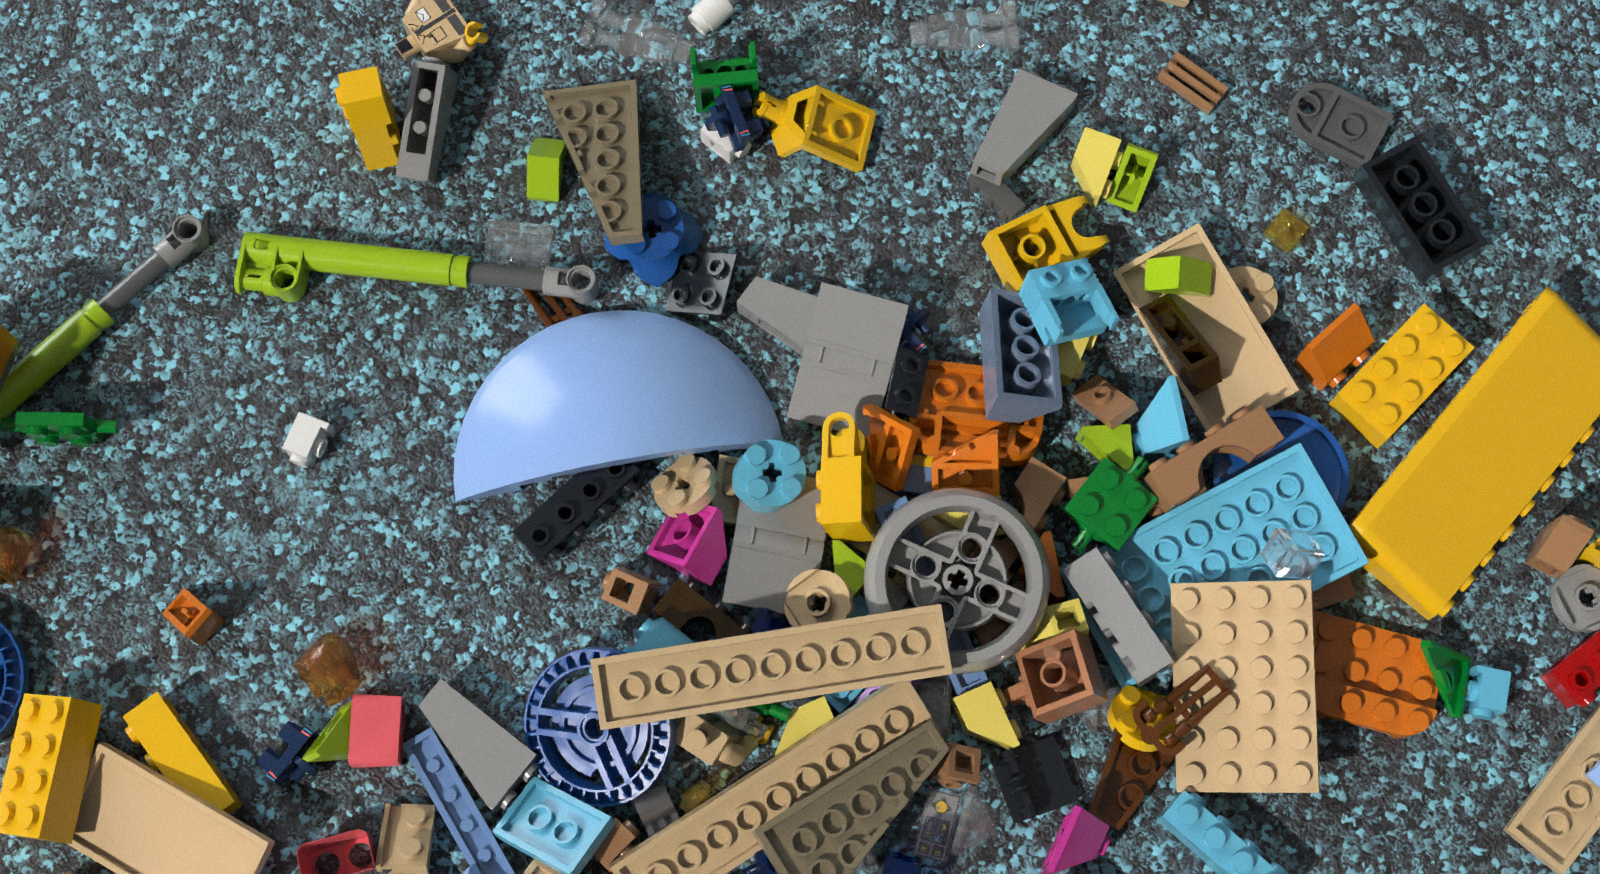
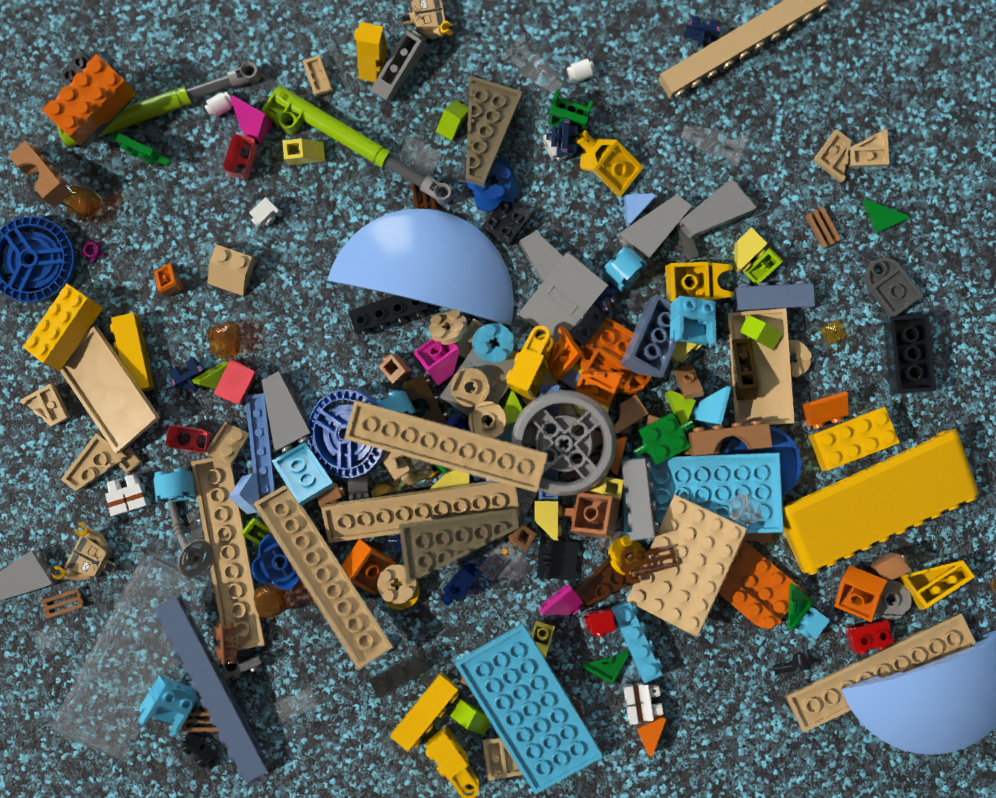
camera: 25 degrees right, 10 degrees up
(36, 622) = (97, 250): none -> magenta plate
(160, 303) = (218, 104): none -> white brick
(217, 346) = (236, 144): none -> coral piece
(226, 303) = (251, 121): none -> dark pink slope
(289, 553) = (230, 270): none -> tan slope
(301, 193) = (317, 76): none -> tan plate
(329, 316) = (303, 151): none -> light yellow slope
(777, 548) = (464, 377): none -> tan plate
(891, 173) = (635, 205): none -> light blue slope
(922, 273) = (624, 269): none -> medium azure brick
(935, 198) = (652, 229): none -> light grey slope
(1151, 846) = (599, 621): none -> red brick
(1155, 222) = (777, 296): none -> sand blue brick
(1273, 29) = (882, 216): none -> green tile
(1498, 767) = (799, 663): none -> black bar
(1536, 608) = (860, 593): none -> orange slope

